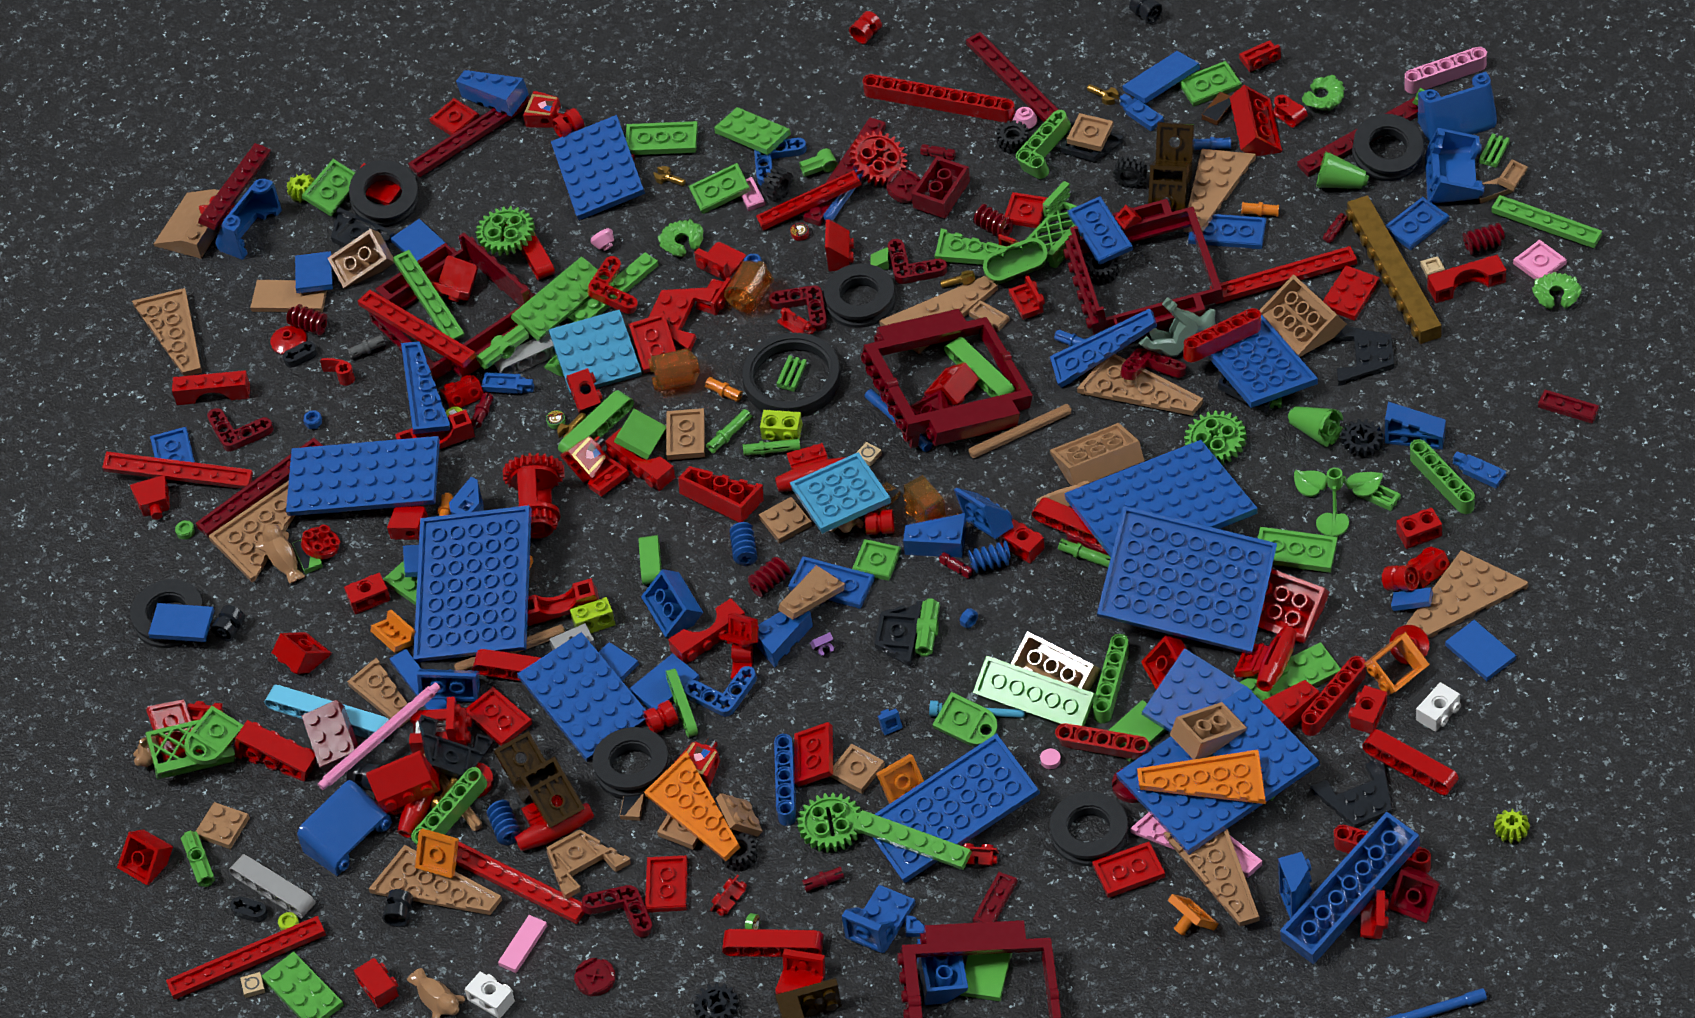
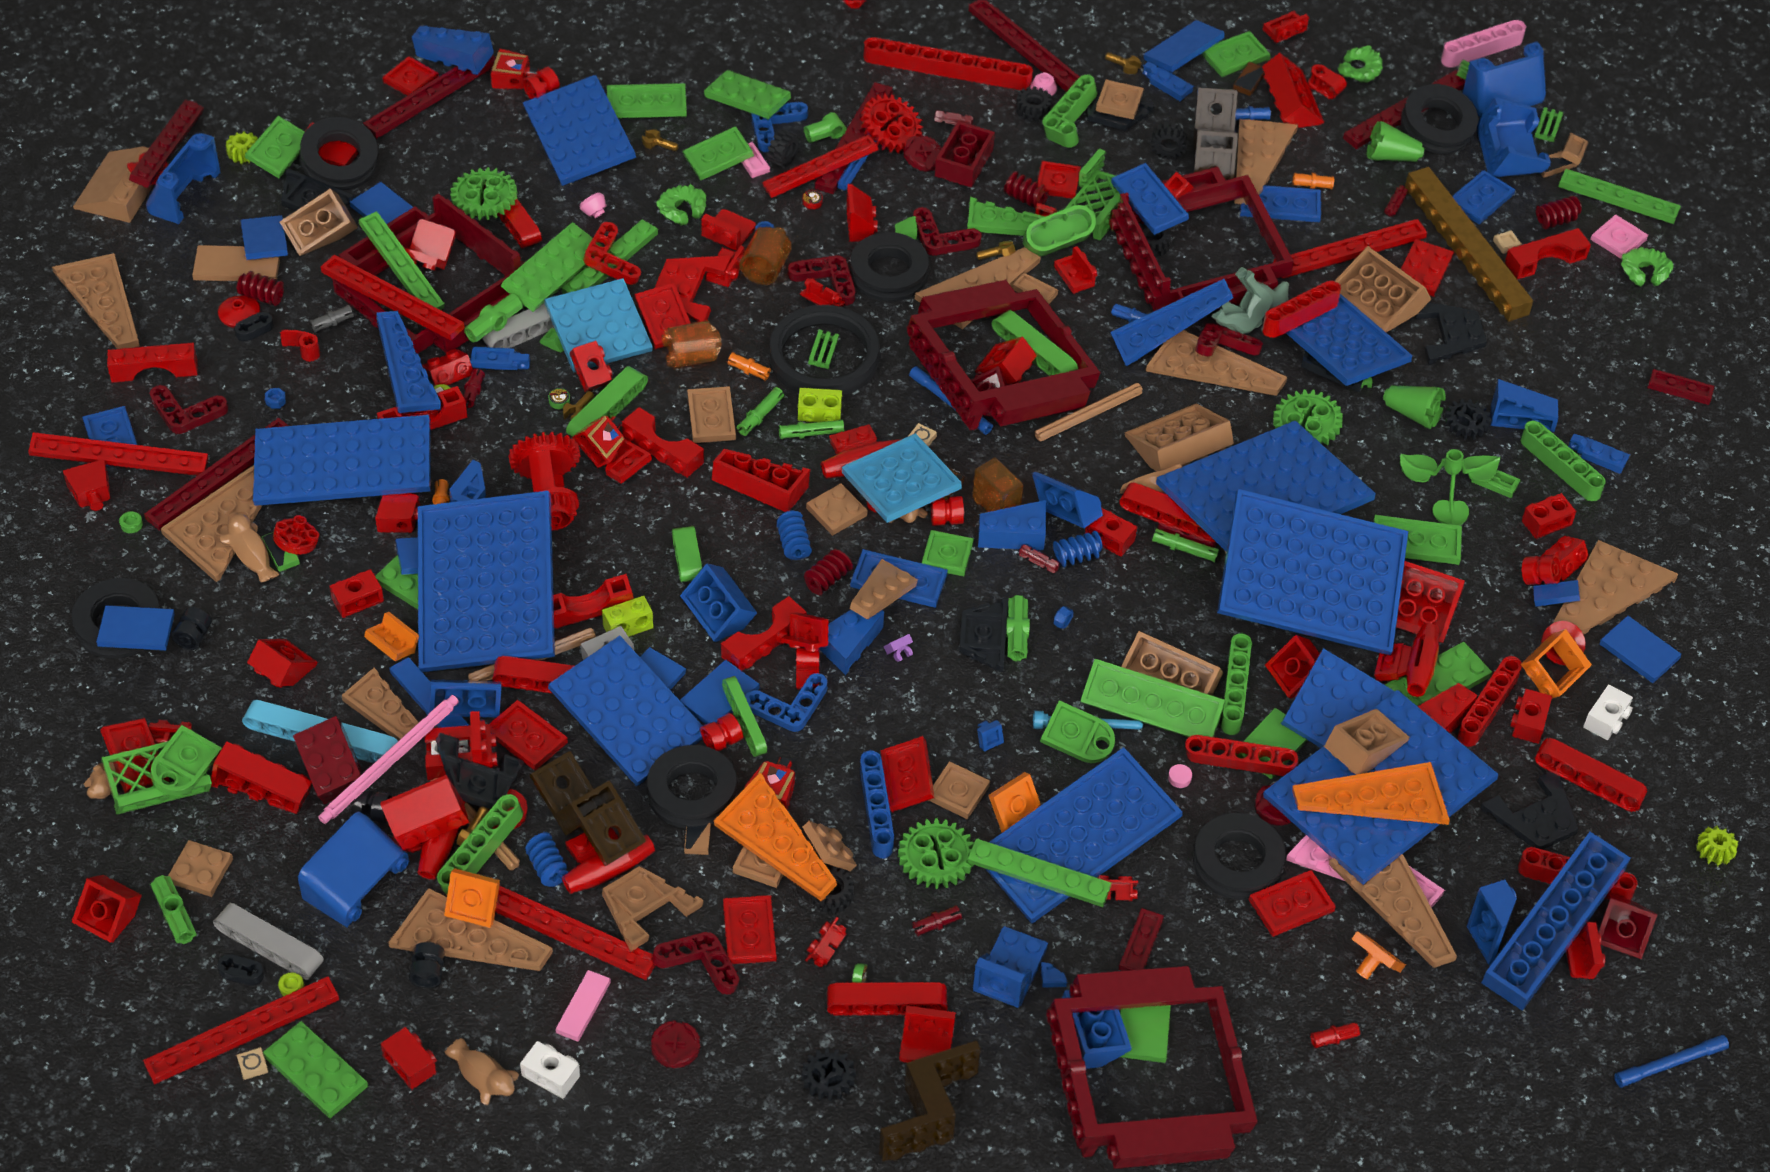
camera: 15 degrees left, 0 degrees up
(640, 434) = (661, 414): bright green tile -> none
(1146, 981) = (1334, 1035): none -> red axle

